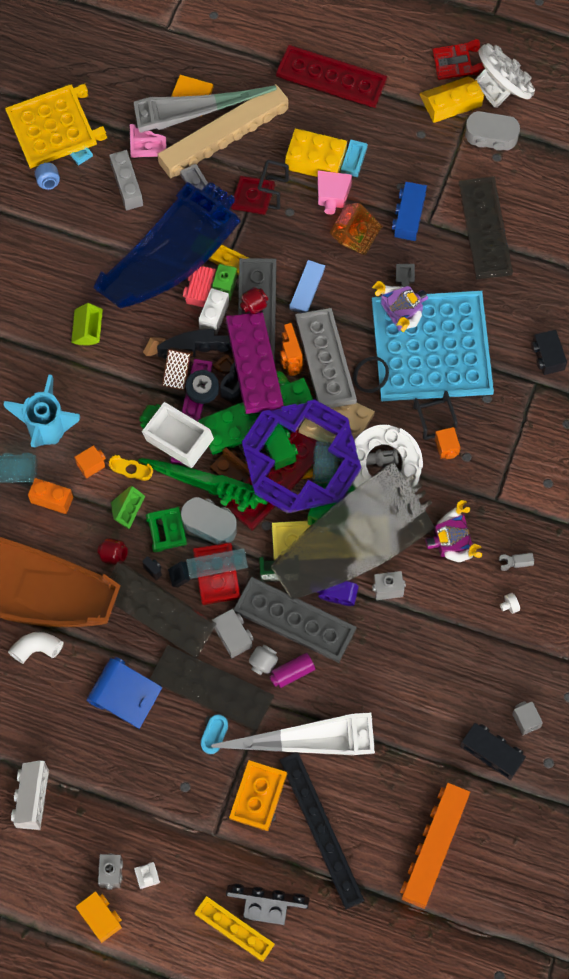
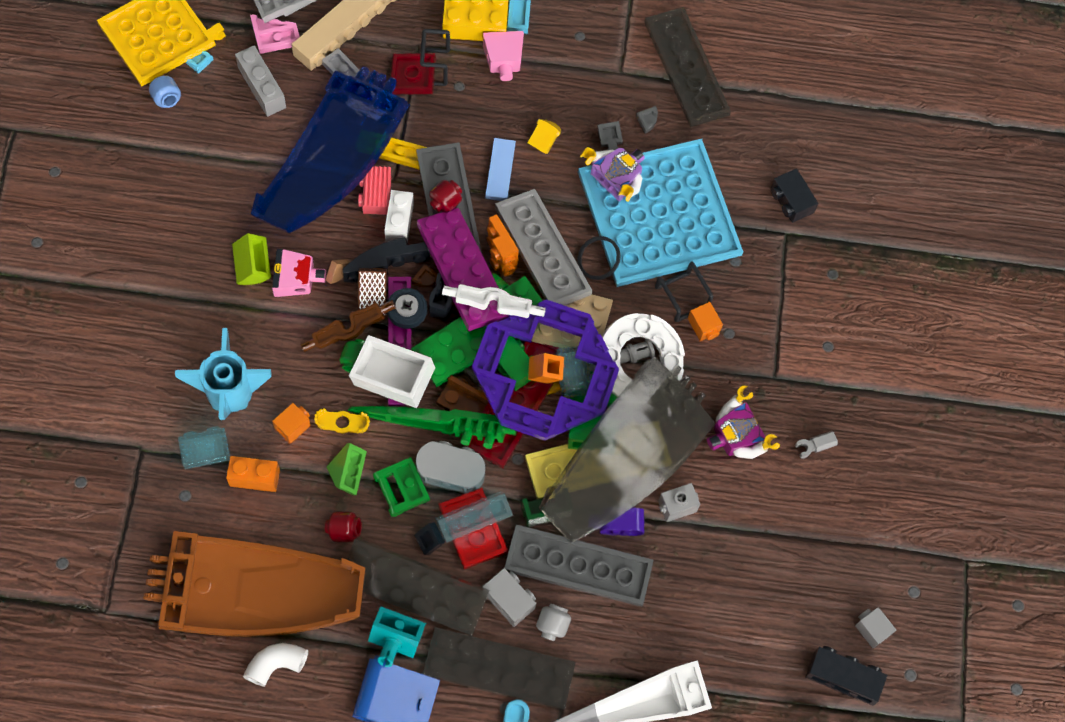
camera: 20 degrees left, 0 degrees up
(119, 342) = (295, 274): none -> bright pink torso
(134, 643) = (395, 634): none -> teal brick
(152, 567) = (396, 537): black plate -> none
(161, 389) = (359, 321): none -> reddish brown piece
(225, 279) = (404, 176): bright green head -> none
(280, 397) = (481, 297): none -> white piece
(292, 671) = (590, 628): magenta brick -> none
(301, 455) = (546, 368): none -> orange brick
(350, 265) = (544, 135): none -> yellow tile
(355, 228) = (541, 91): clear orange slope -> none
(409, 211) = (597, 61): blue brick -> none
(441, 266) = (647, 118): none -> dark grey tile
(510, 603) = (823, 495): white tile -> none

